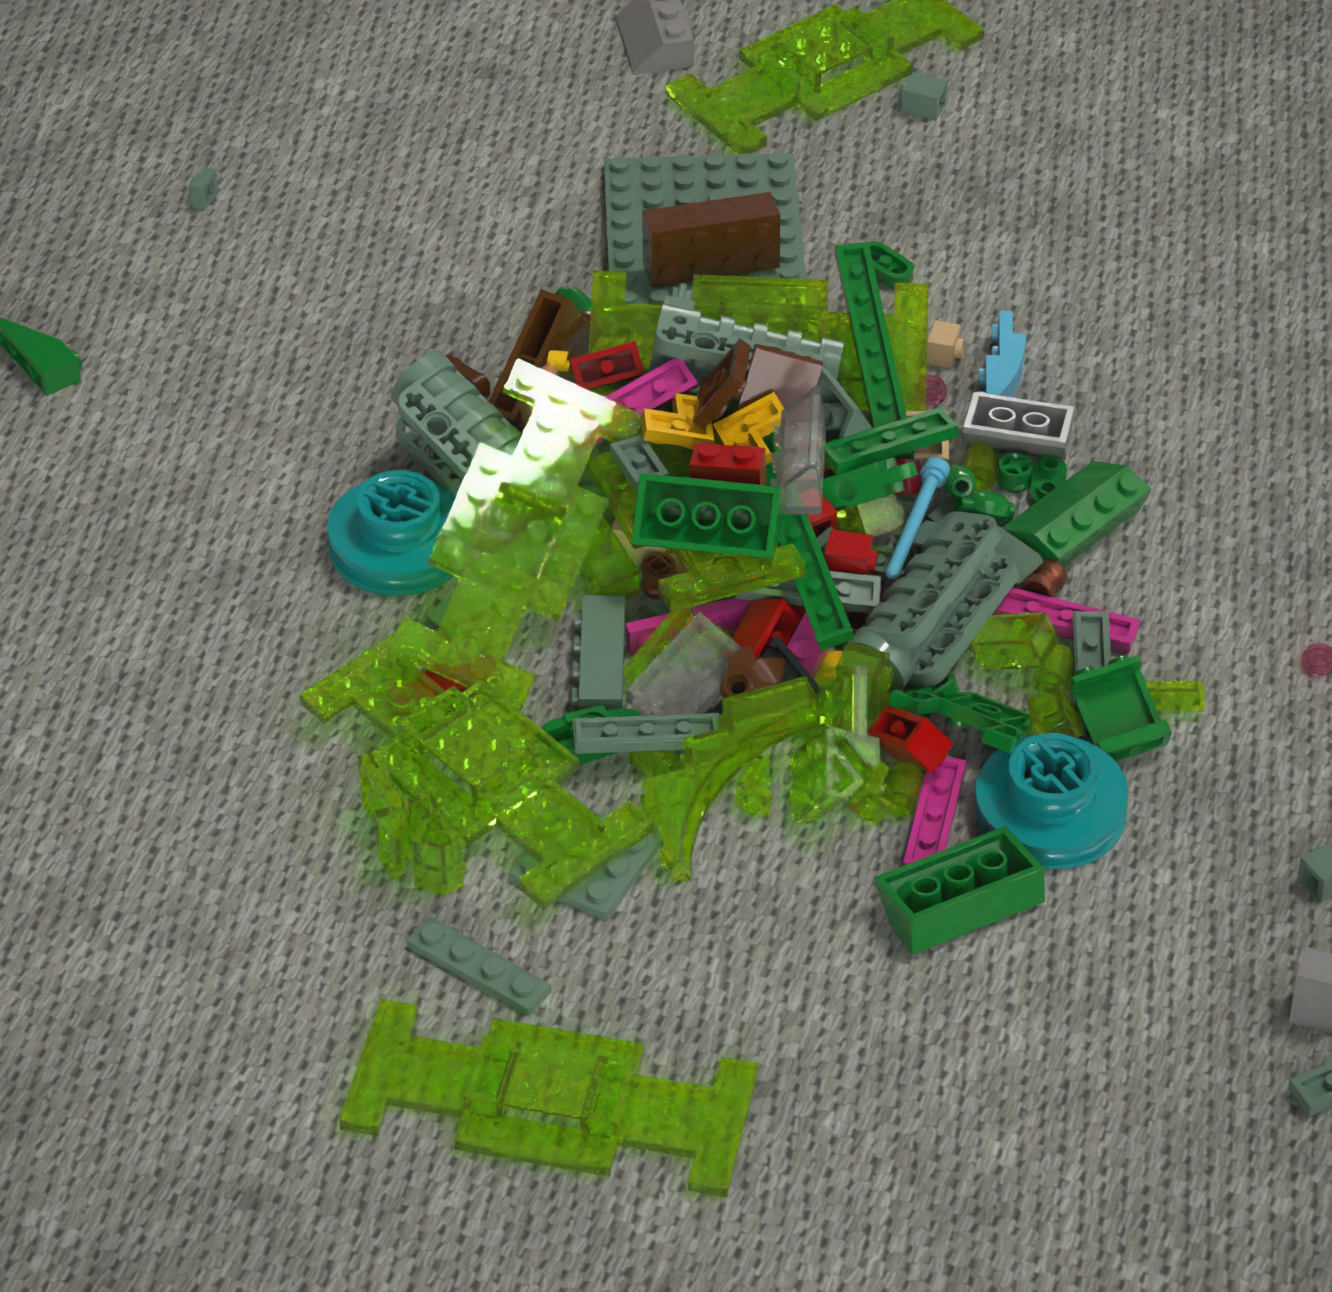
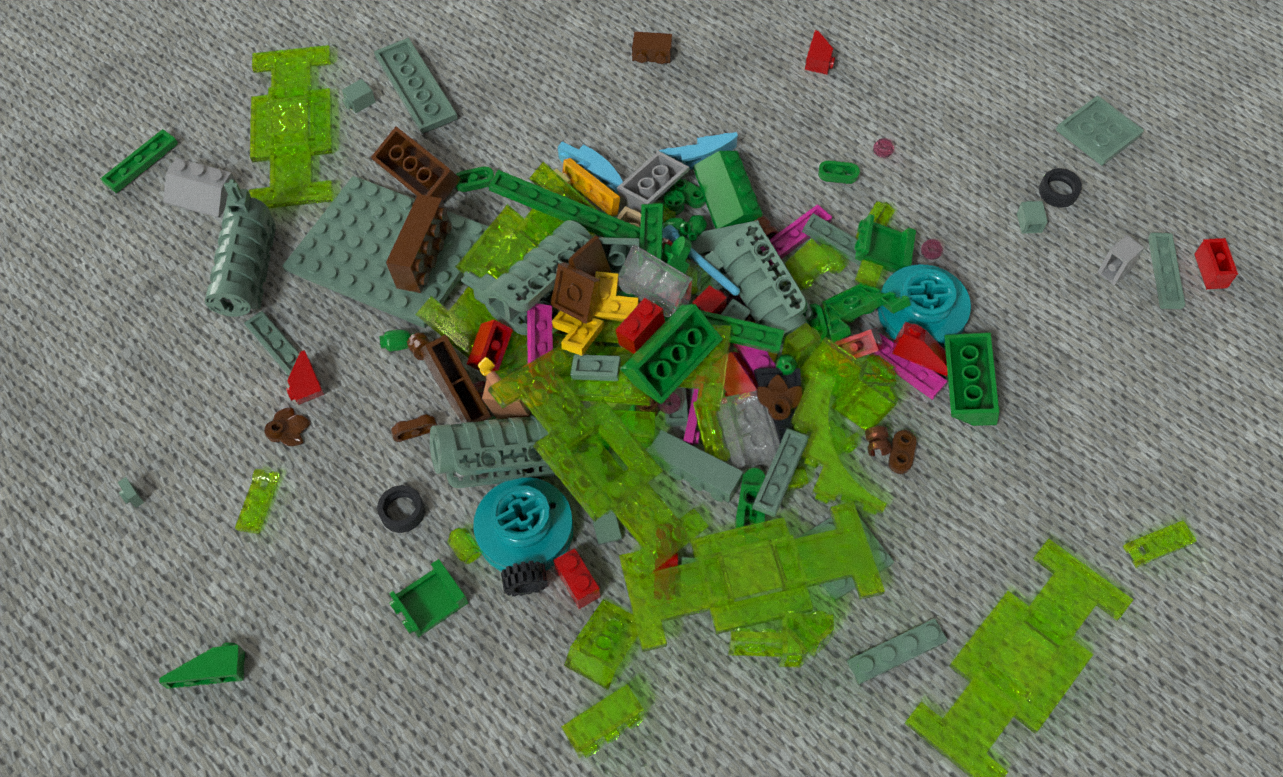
camera: 60 degrees left, 15 degrees up
(192, 712) = (603, 722): none -> clear neon green brick
(243, 497) = (428, 600): none -> green panel
(270, 297) = (257, 501): none -> clear neon green plate
(281, 666) = (603, 644): none -> clear neon green slope
(324, 558) = (524, 578): none -> black tyre
(331, 490) = (464, 545): none -> clear neon green brick
(345, 435) = (410, 522): none -> black tyre
(360, 610) = (577, 578): none -> red brick
(382, 273) = (289, 425): none -> reddish brown plate
(453, 250) = (303, 381): none -> red slope
(489, 213) = (273, 341): none -> sand green tile
(580, 107) = (241, 255): none -> sand green piece
(783, 829) = (877, 439): none -> copper wheel
(789, 867) = (903, 451): none -> reddish brown plate
(815, 668) = (785, 359): none -> green plant
(843, 195) = (414, 166): none -> reddish brown brick
(847, 1200) = (1160, 543): none -> clear neon green plate
(963, 371) = (591, 187): none -> light orange plate
(963, 802) = (920, 348): none -> red slope
(992, 140) = (415, 85): none -> sand green plate
(1102, 446) = (704, 148): none -> medium azure slope
(1174, 772) = (931, 244): none -> clear pink plate
(1227, 627) = (838, 172): none -> green plate
(1277, 335) = (651, 47): none -> reddish brown brick

